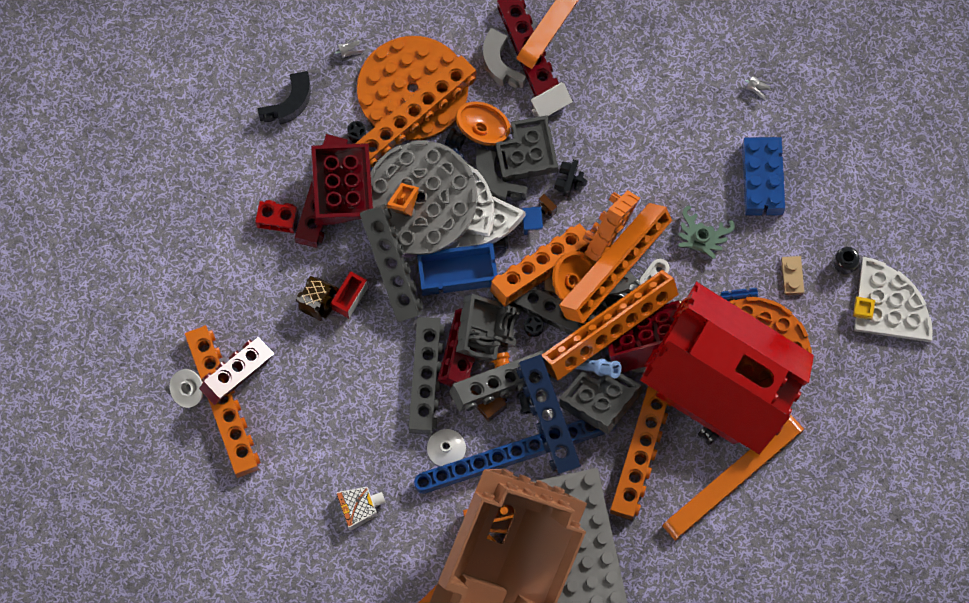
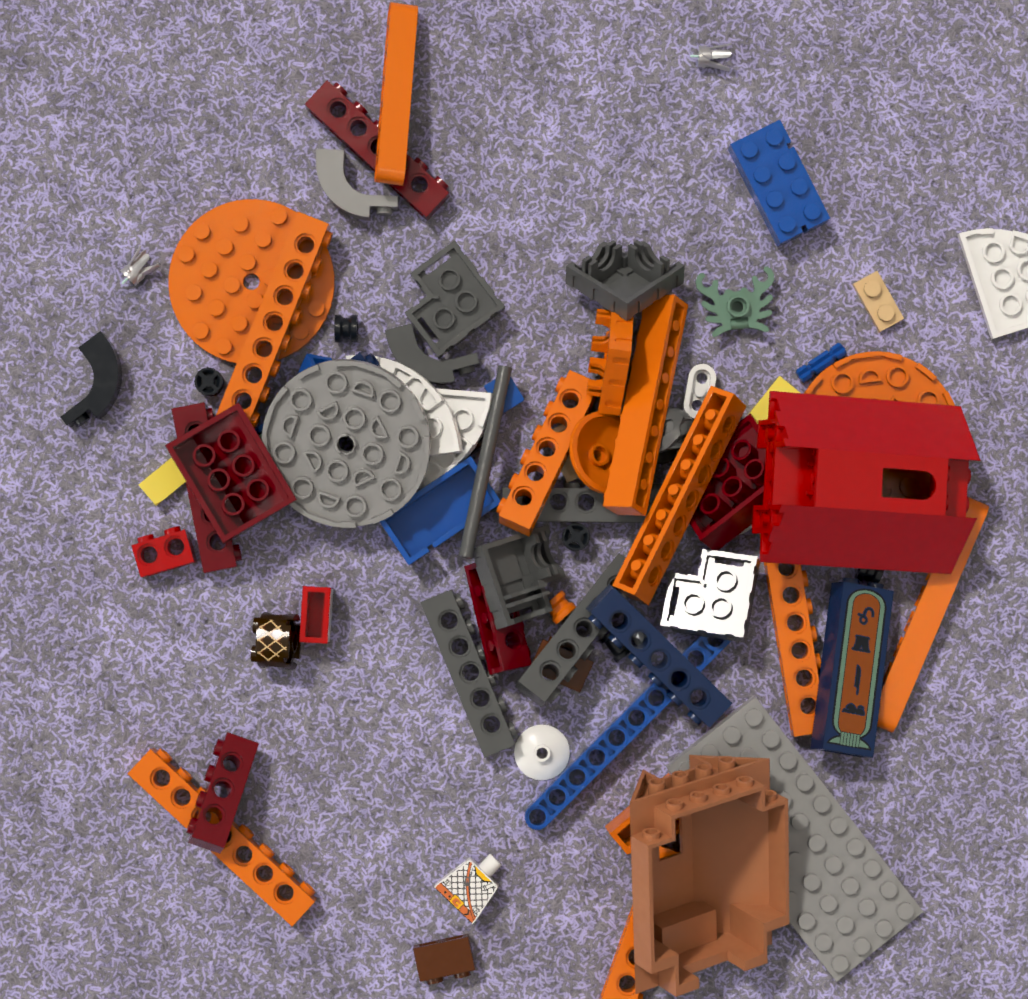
camera: 30 degrees left, 15 degrees up
(180, 388) = (167, 842): white dish -> none
(298, 176) = (162, 482): none -> light yellow slope
(319, 543) = (444, 959): none -> reddish brown brick
(388, 273) = (395, 601): dark grey brick -> none
(403, 199) = (327, 461): orange slope -> none
(482, 123) = (377, 281): orange dish -> none
(499, 250) = (485, 462): none -> dark grey piece
(547, 206) = (516, 363): reddish brown plate -> none
(551, 100) = (449, 215): white panel -> none
(565, 185) = (520, 297): black hips -> none
(602, 367) = (698, 556): light blue pin -> none
(640, 185) = (626, 280): none -> dark grey piece
(668, 485) = (852, 668): none -> brick
(846, 260) = (947, 243): black head -> none
(863, 308) = (992, 305): yellow tile -> none

